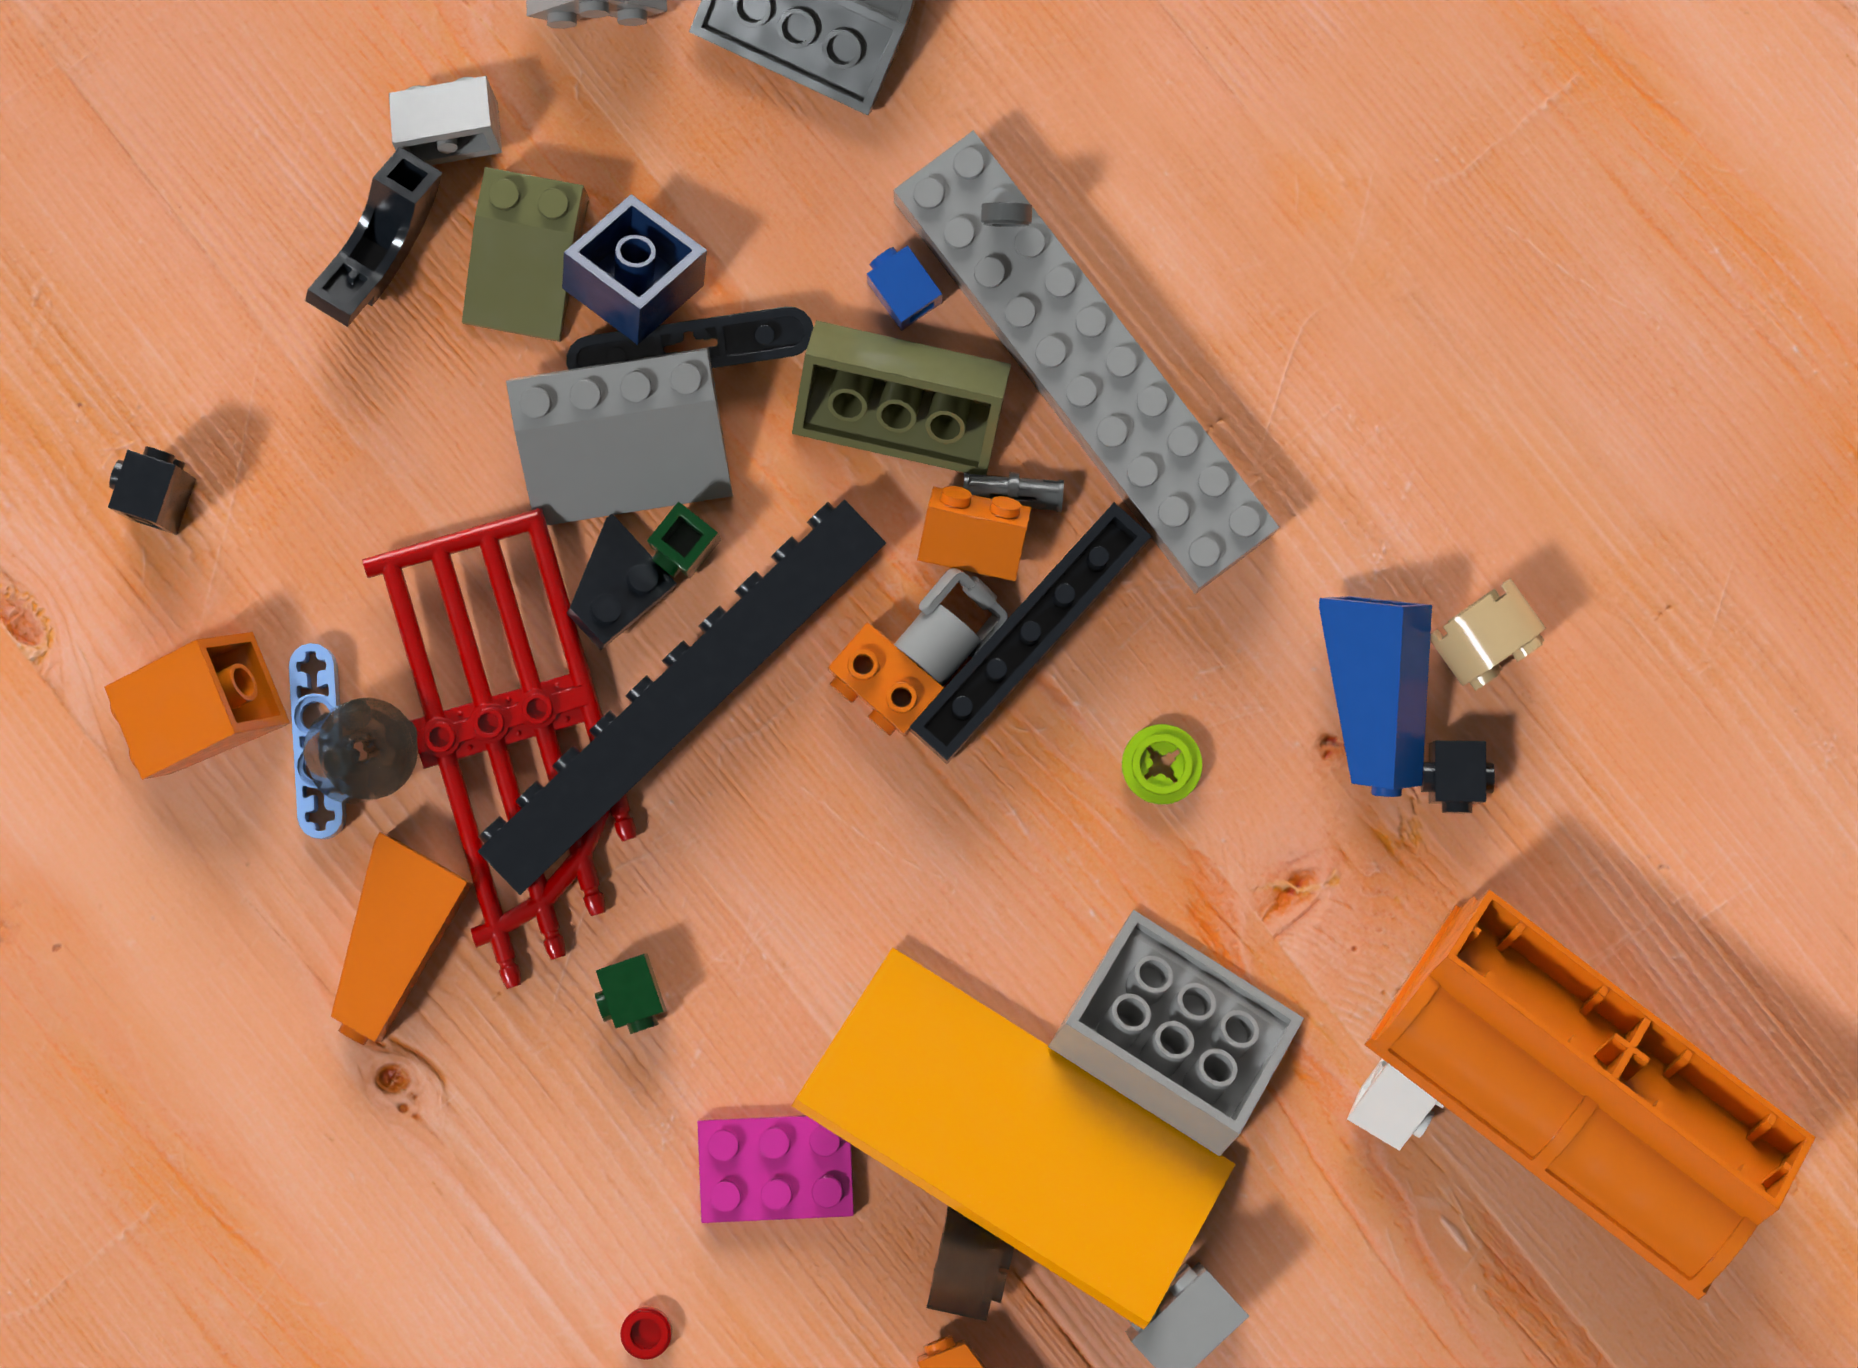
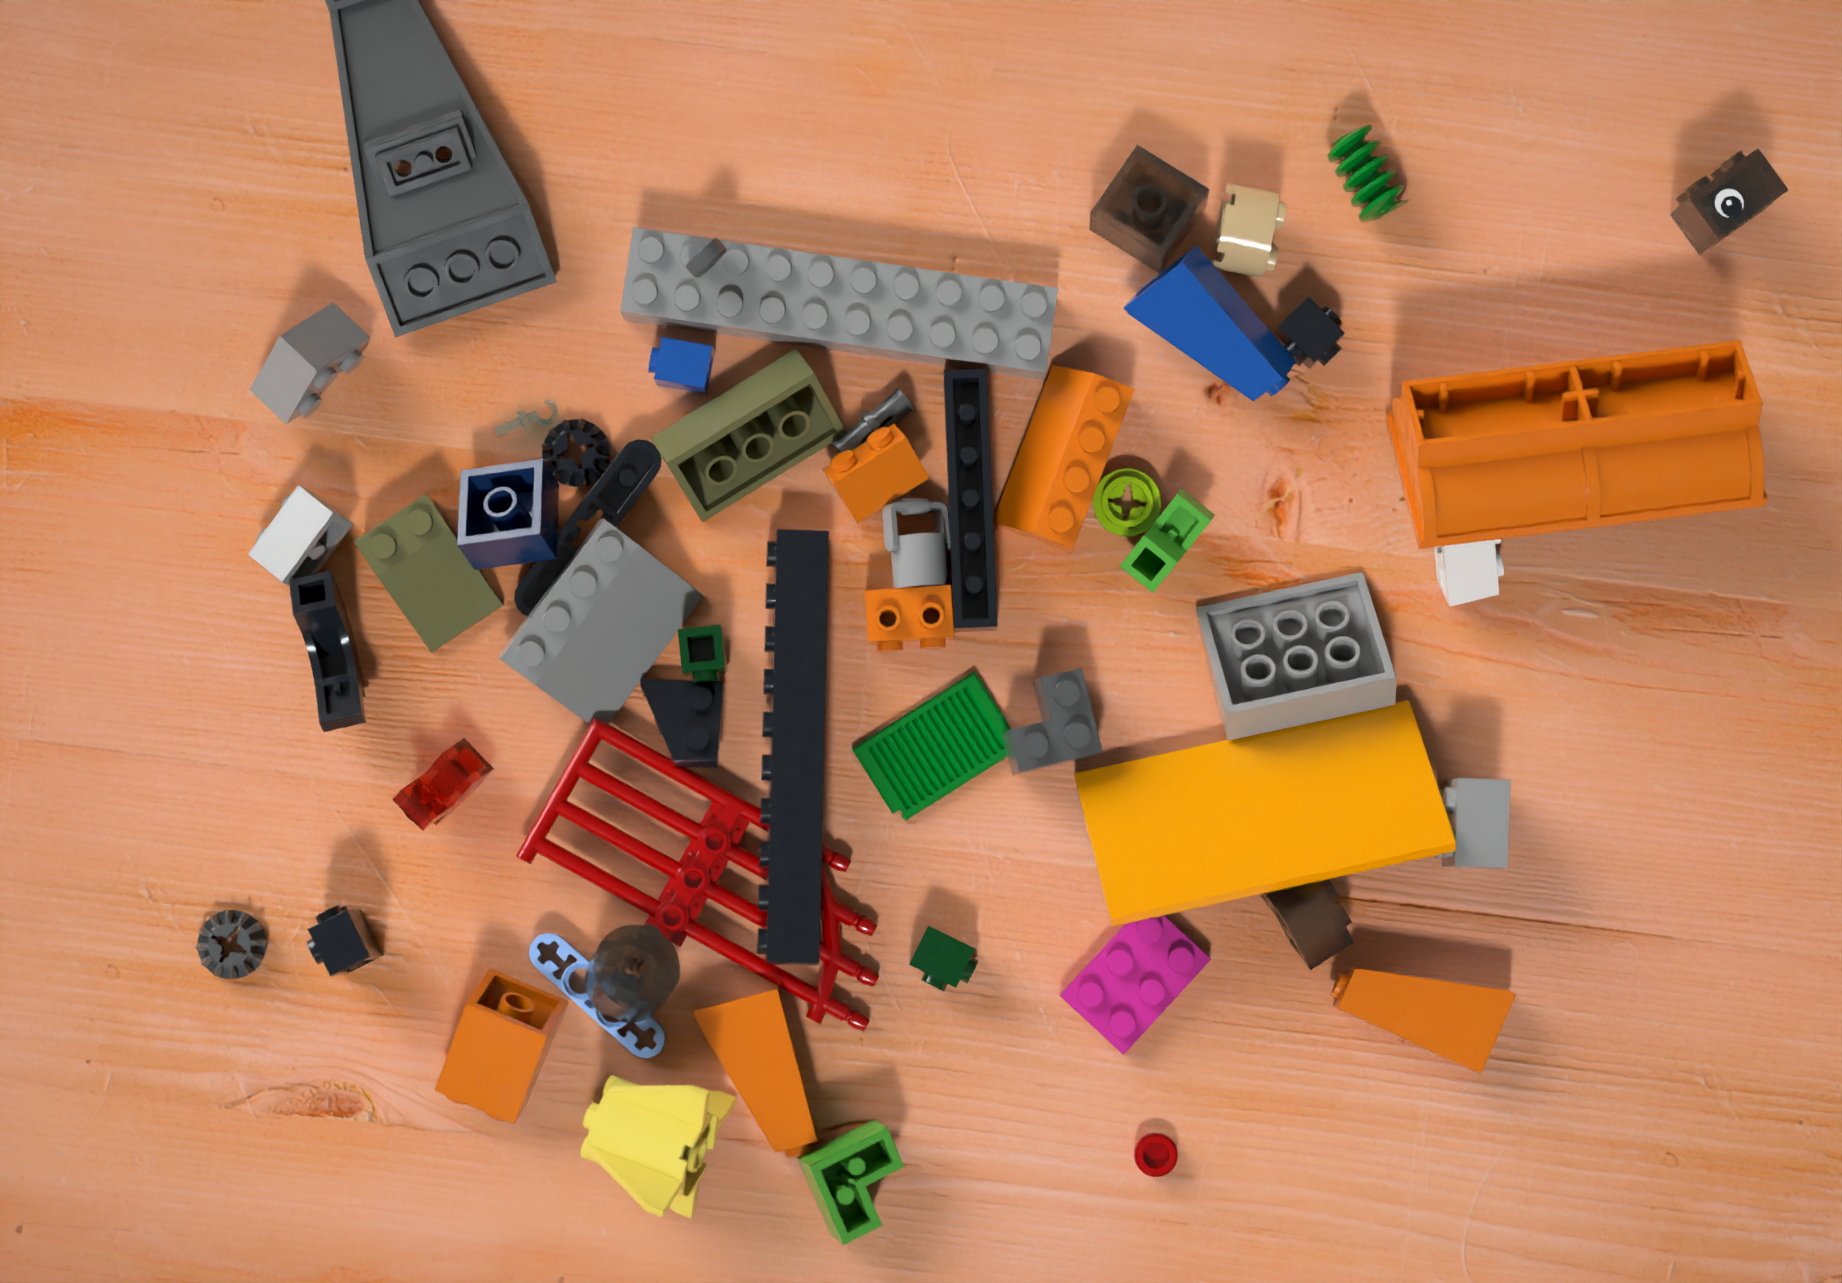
camera: 45 degrees left, 0 degrees up
(82, 412) = (250, 937): none -> dark grey gear
(241, 908) = (655, 1140): none -> light yellow brick
(360, 442) = (443, 785): none -> clear red brick
(371, 1087) = (841, 1172): none -> bright green brick
(728, 205) = (524, 420): none -> clear light blue hand
(751, 294) = (594, 459): none -> black gear
(801, 812) = (935, 747): none -> green window
(918, 906) = (1066, 729): none -> dark grey brick
(1146, 674) = (1063, 457): none -> orange slope
(1162, 829) = (1167, 540): none -> bright green brick
(1423, 535) = (1148, 209): none -> clear smoke brick
(1637, 686) = (1366, 174): none -> green piece

